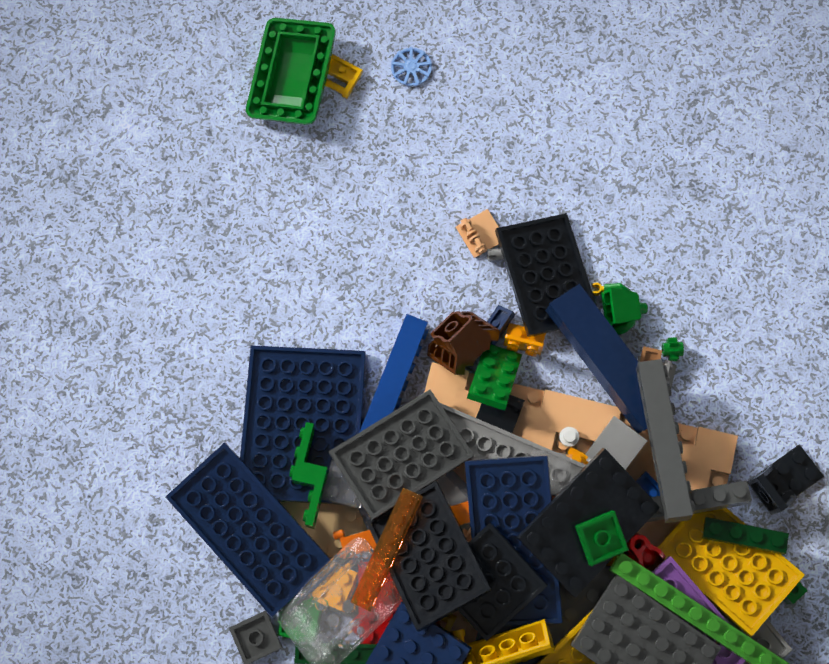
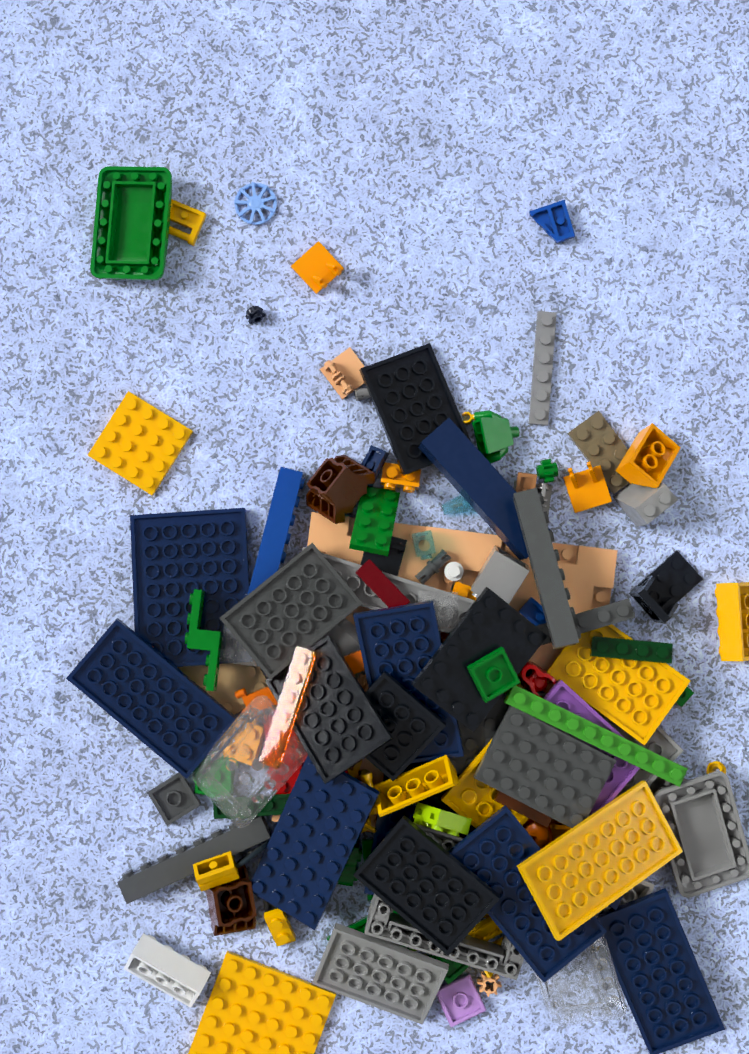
camera: 10 degrees left, 10 degrees up
(270, 278) = (140, 443): none -> yellow plate
(398, 168) = (254, 314): none -> black plate
(464, 131) = (317, 267): none -> light orange plate
(493, 437) = (381, 585): none -> dark red tile
(541, 397) = (427, 536): none -> clear light blue brick
(548, 429) = (432, 567): none -> dark grey pin
(577, 373) = (456, 505): none -> clear light blue cone
(676, 250) = (542, 368): none -> light grey plate
(700, 112) = (554, 221): none -> blue wing
(711, 371) = (587, 488): none -> light orange plate
(733, 338) = (601, 447): none -> dark tan plate
(769, 387) = (644, 503): none -> light grey slope
(776, 346) = (648, 458): none -> light orange slope

